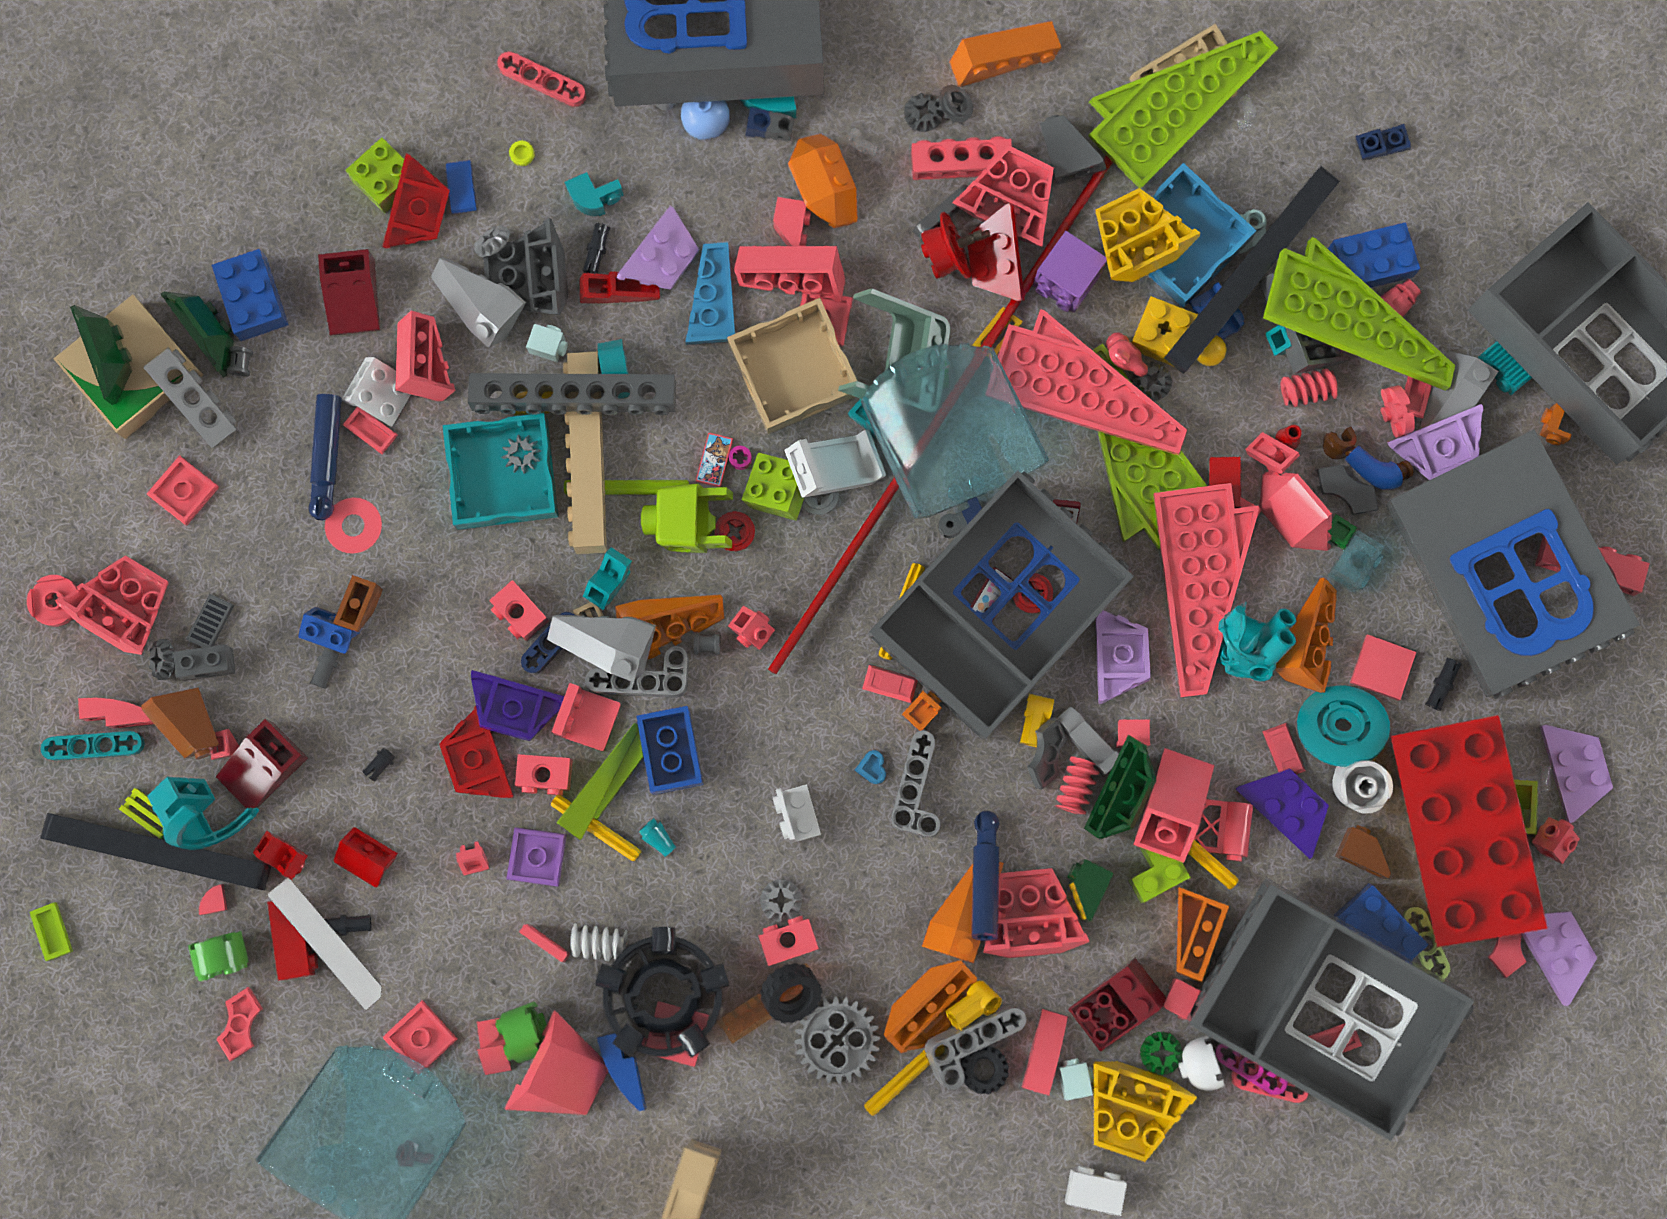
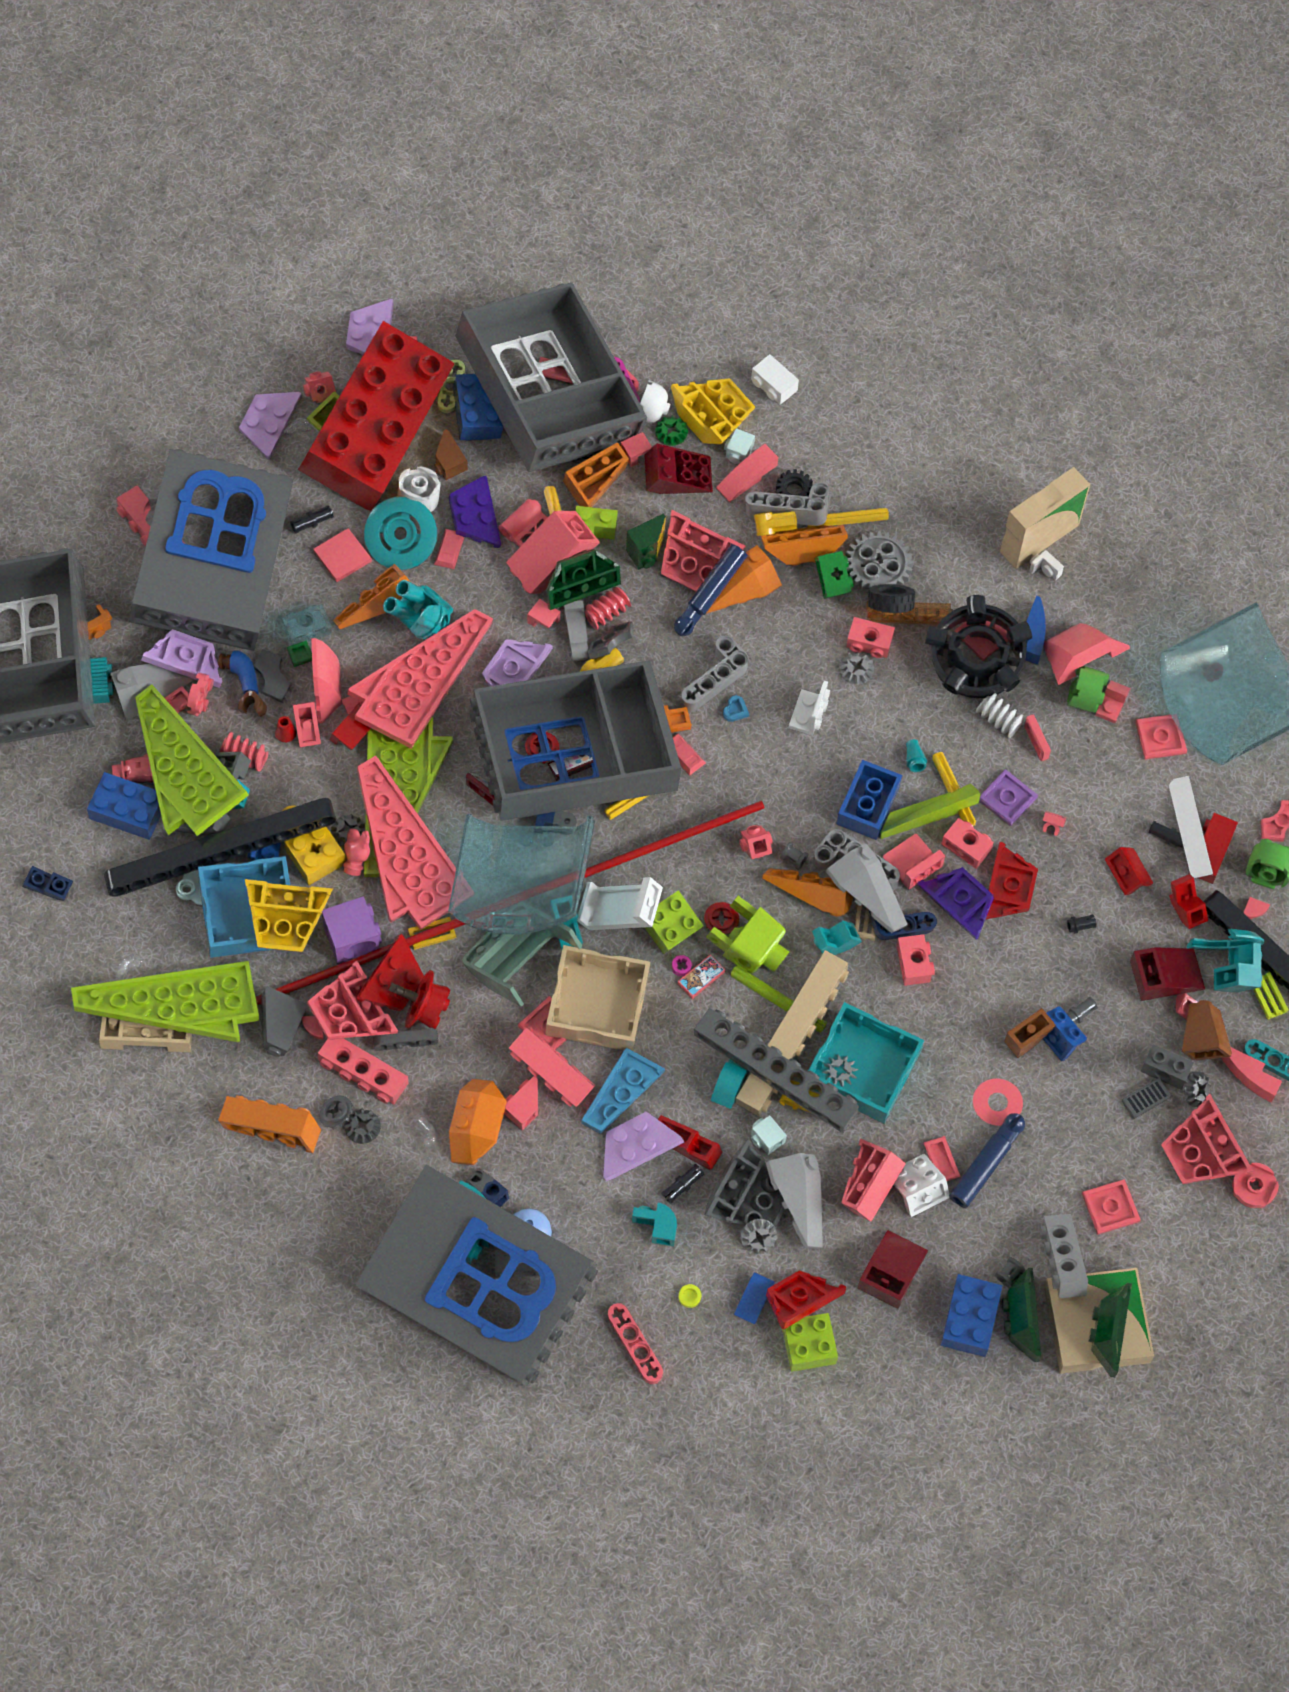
camera: 150 degrees left, 15 degrees down
(654, 1162) = (1049, 565): none -> white bracket
(884, 995) = (830, 585): none -> green brick

